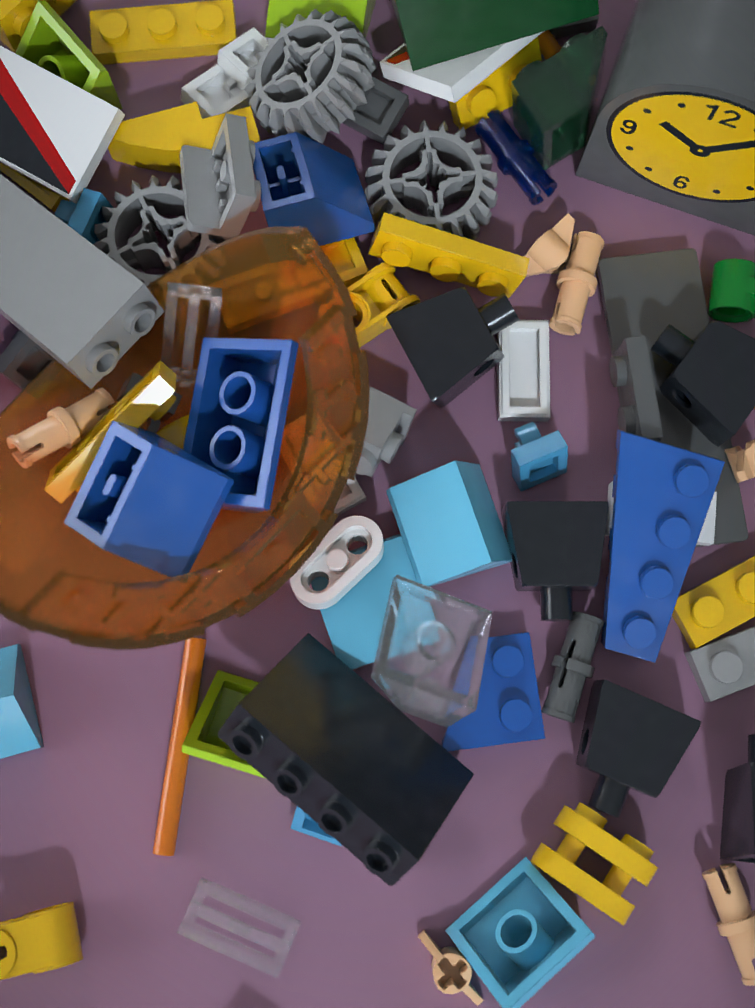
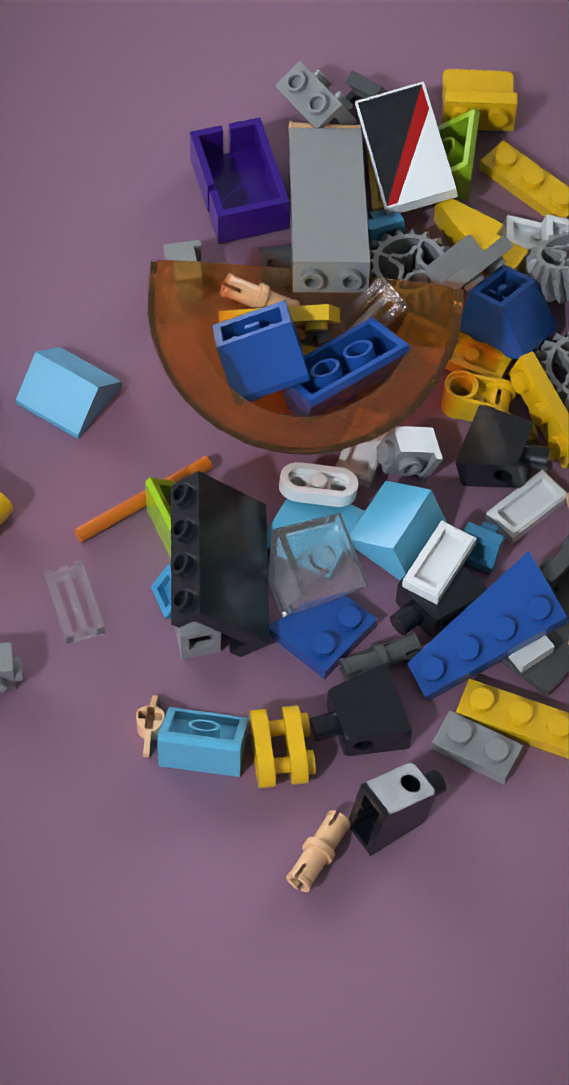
camera: 50 degrees right, 20 degrees down
(539, 524) = (439, 562): none -> white tile

